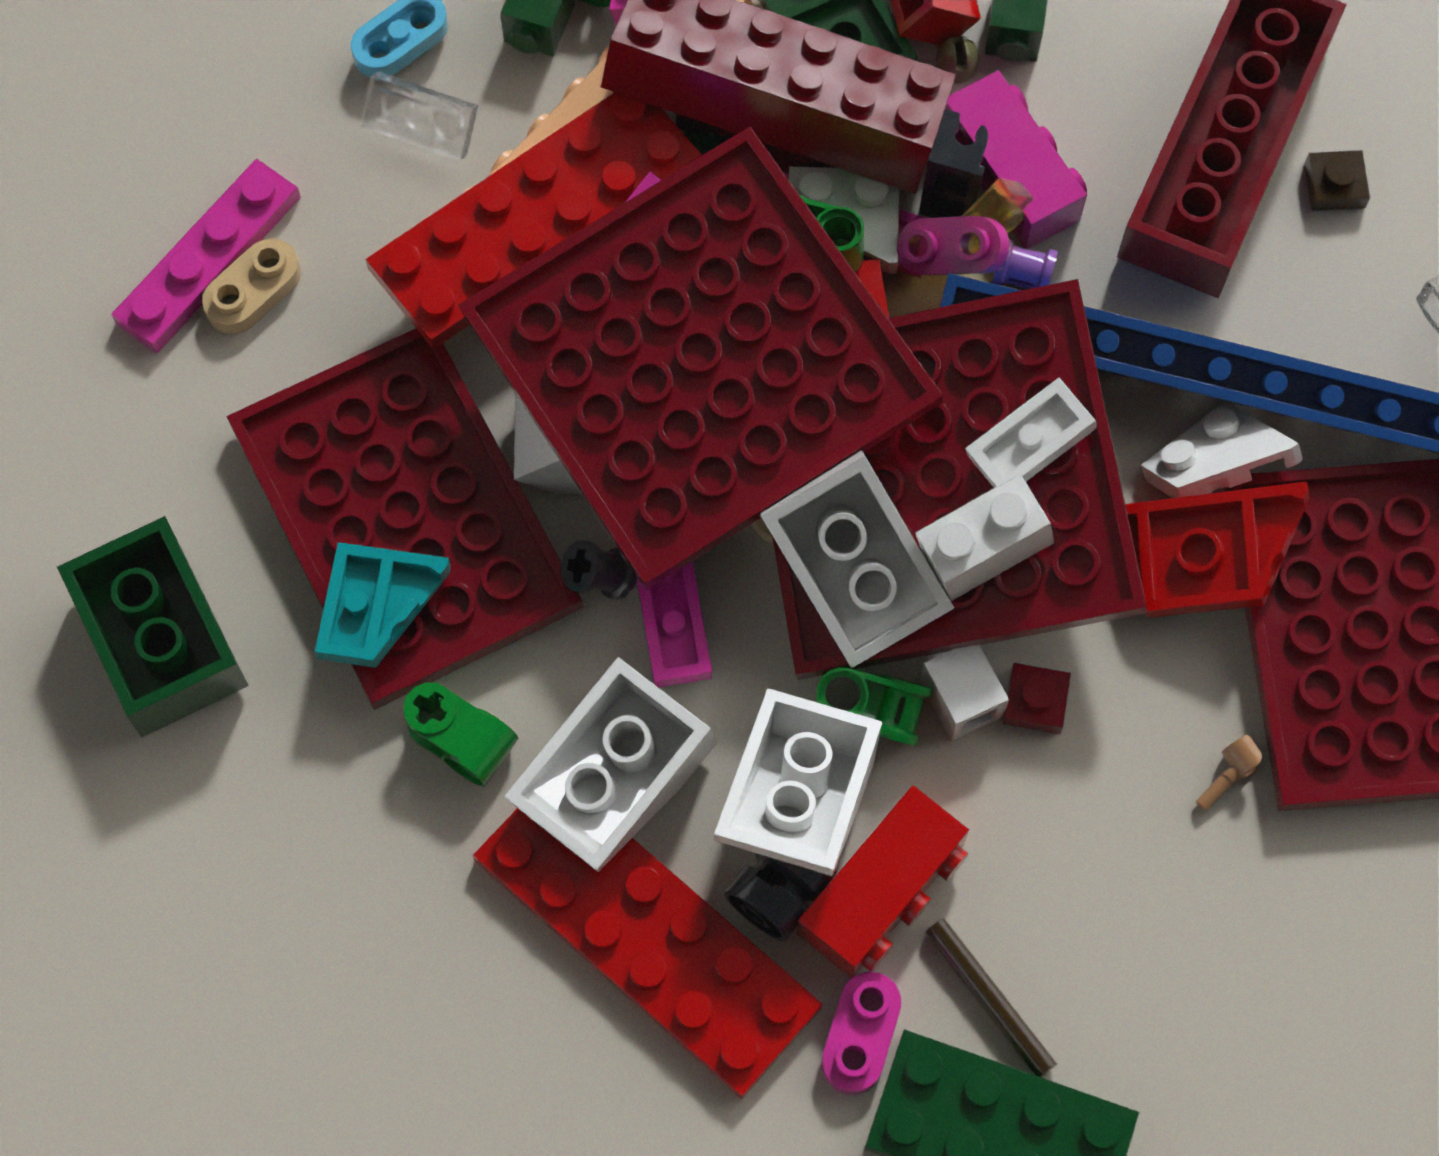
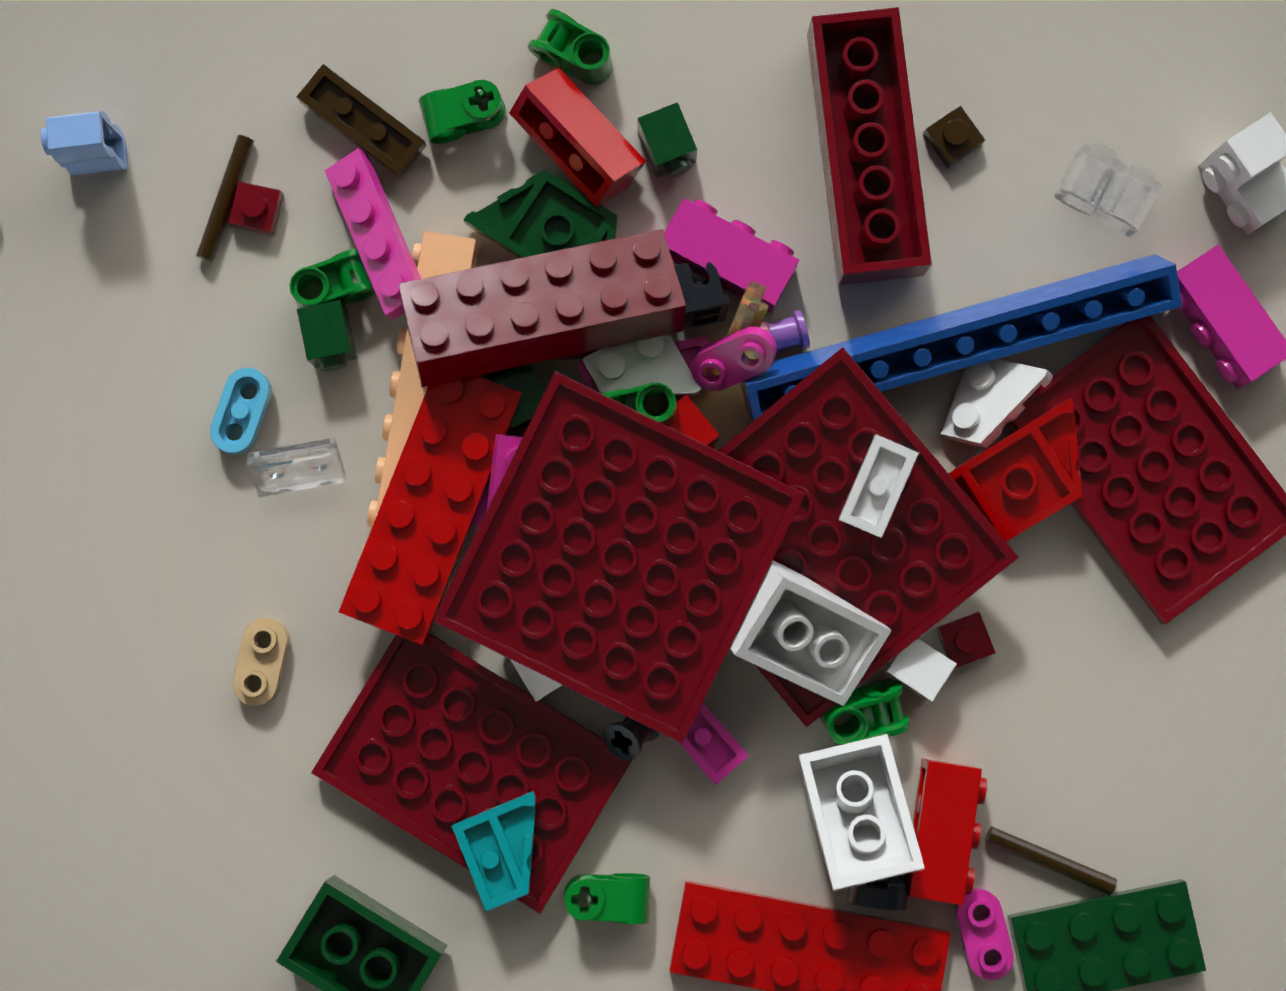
camera: 30 degrees left, 15 degrees up
(213, 243) = (214, 657): dark pink plate -> none
(612, 765) = (727, 865): white slope -> none
(947, 58) = (636, 202): olive hinge -> none
(985, 537) = (888, 576): white brick -> none
(1244, 761) = (1123, 605): medium nougat hand -> none

